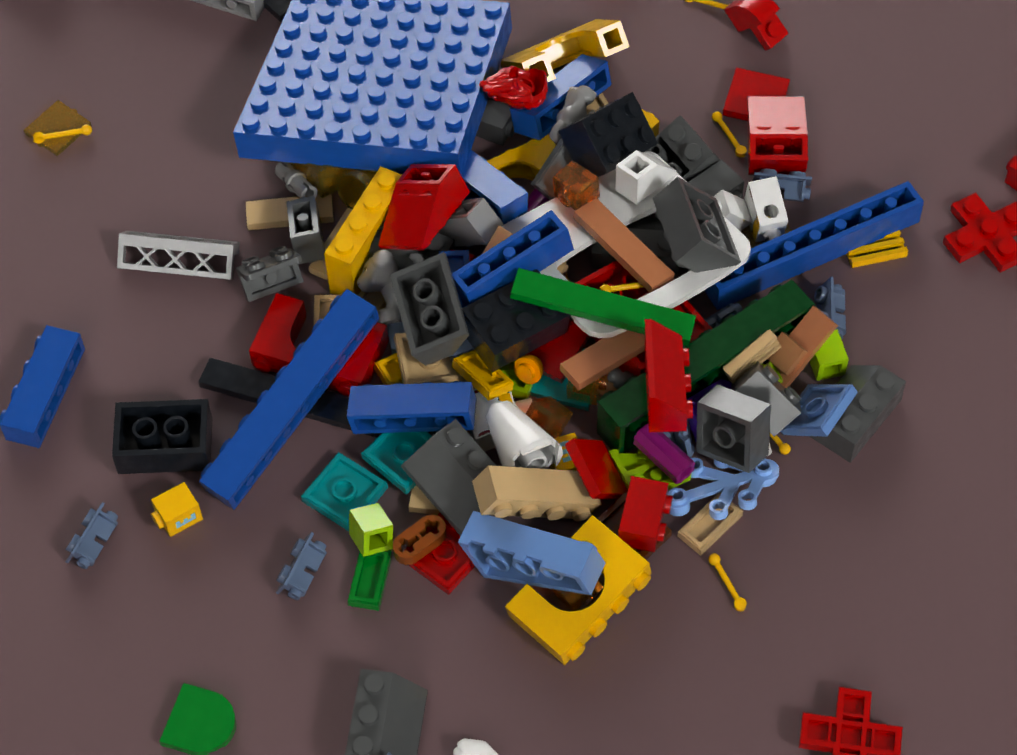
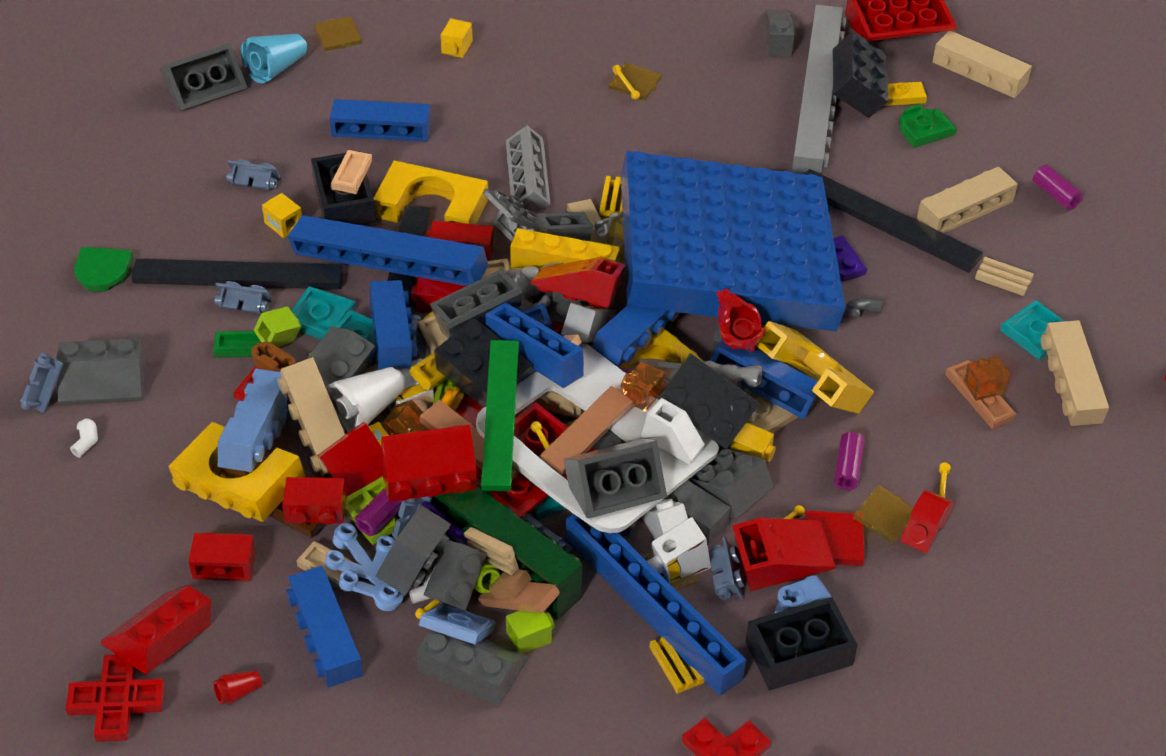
camera: 75 degrees right, 10 degrees down
(155, 413) = (351, 172): none -> light nougat tile
(202, 317) = (410, 181): none -> yellow arch
(248, 177) = (610, 183): none -> yellow tile
(253, 575) = (244, 273): none -> black tile
(671, 61) = (849, 461): none -> magenta axle
(686, 619) = (222, 556): none -> red brick
(739, 51) = (884, 514): none -> clear yellow piece
(739, 602) = (249, 600): yellow hinge -> none
(776, 683) = (161, 628): none -> red slope
(794, 531) = (325, 627): none -> blue brick
(828, 135) = (801, 593): none -> medium blue piece
(829, 299) = (573, 628): sand blue hinge -> none
(854, 622) = (235, 686): none -> red cone
(883, 142) = (801, 643): none -> black brick

